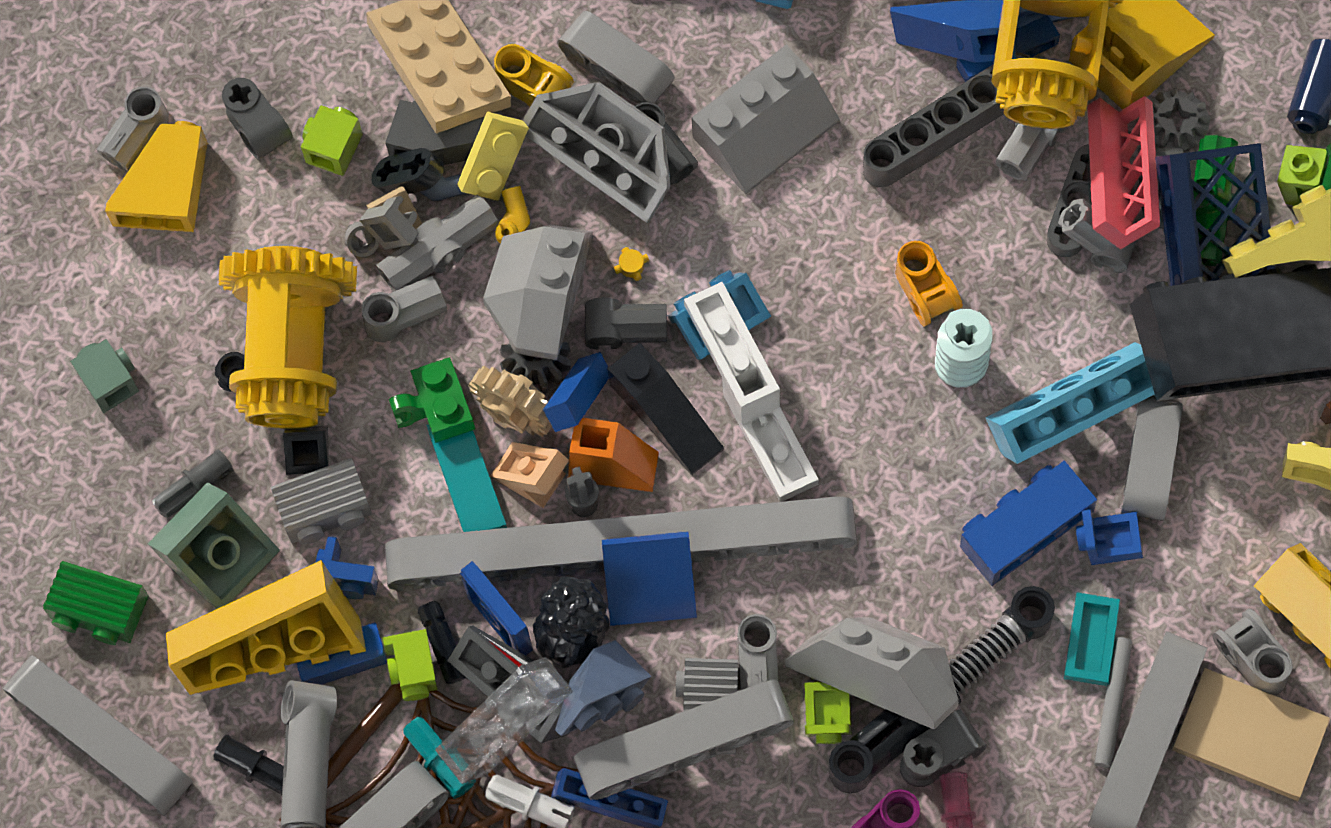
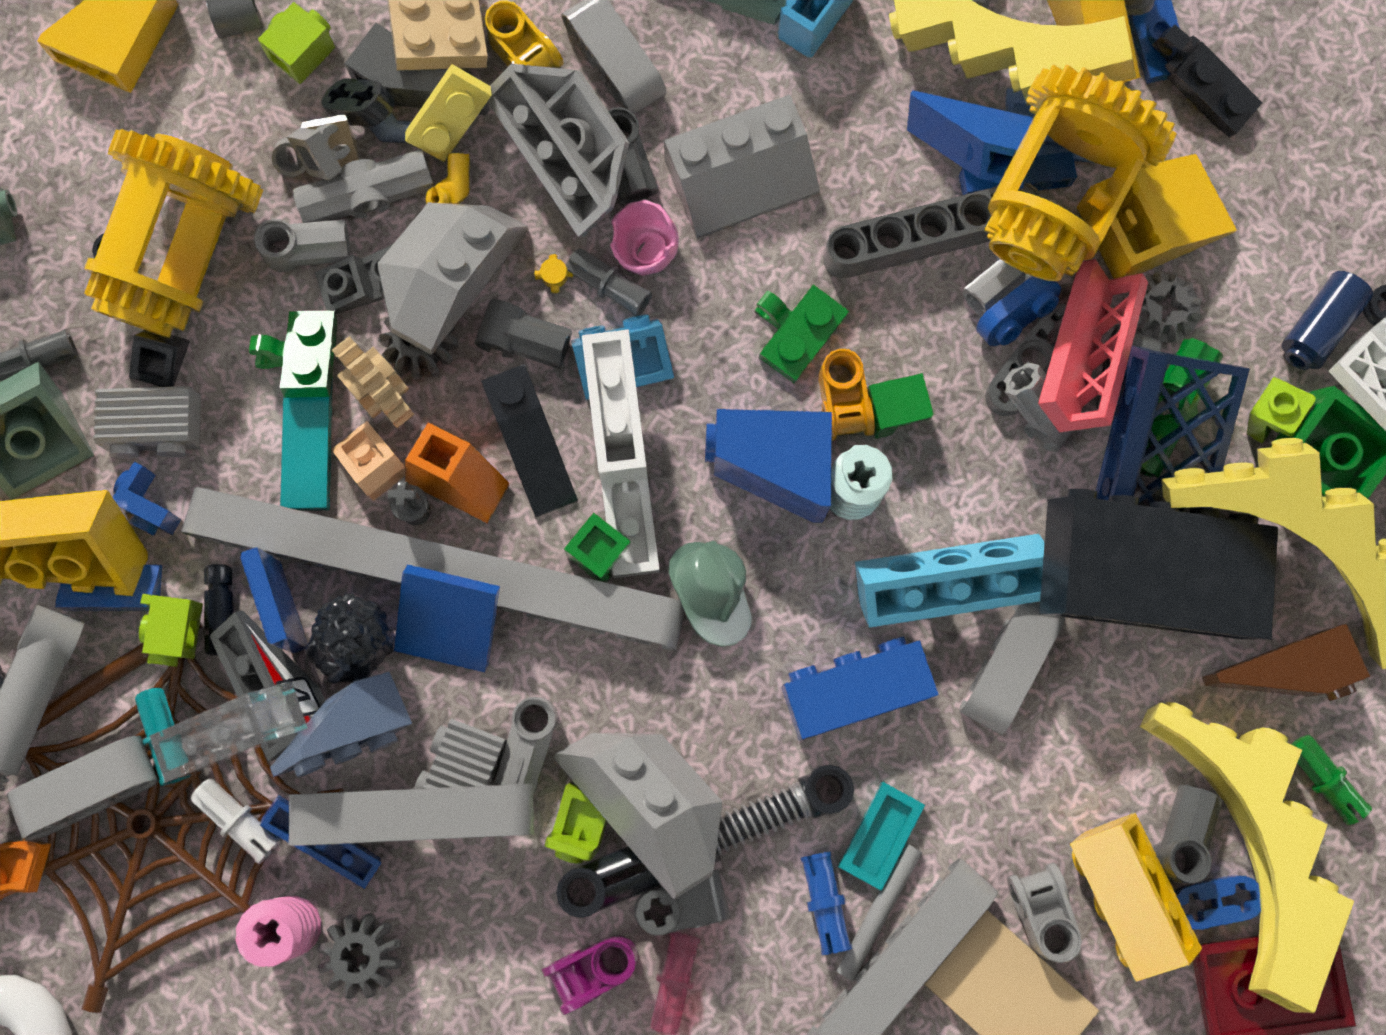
camera: 10 degrees right, 10 degrees up
(460, 325) = (351, 282): none -> dark grey slope
(577, 392) = (440, 395): blue piece -> none
(683, 254) = (609, 281): none -> dark grey axle
(702, 194) = (643, 223): none -> bright pink hair
(757, 477) = (597, 547): none -> green panel
(865, 243) = (799, 331): none -> green plate
(870, 481) = (711, 591): none -> sand green piece
(885, 350) = (775, 457): none -> blue slope
(975, 272) = (899, 403): none -> green panel
(1049, 161) = (1016, 310): none -> blue plate
(1064, 708) = (826, 903): none -> blue pin
(1110, 537) = (938, 735): blue bracket -> none

